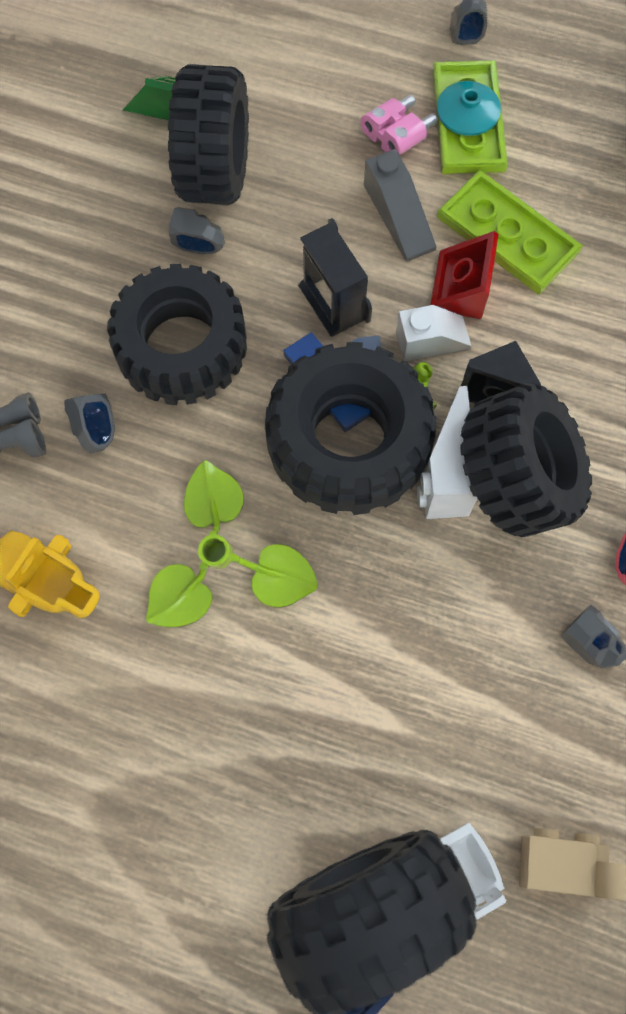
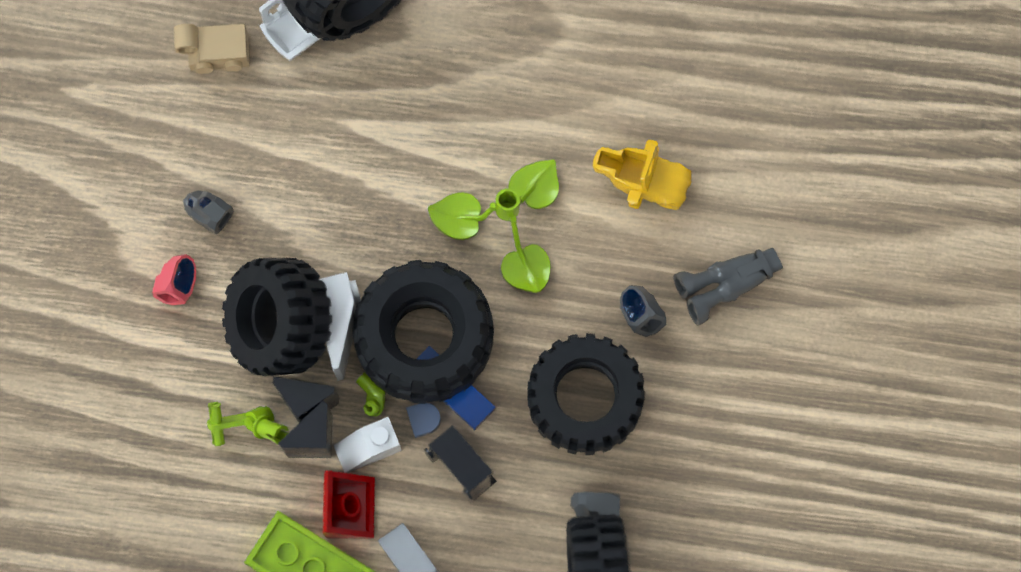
camera: 170 degrees right, 5 degrees up
(502, 326) = (311, 436): none -> black slope
(557, 378) = (258, 421): none -> lime pin

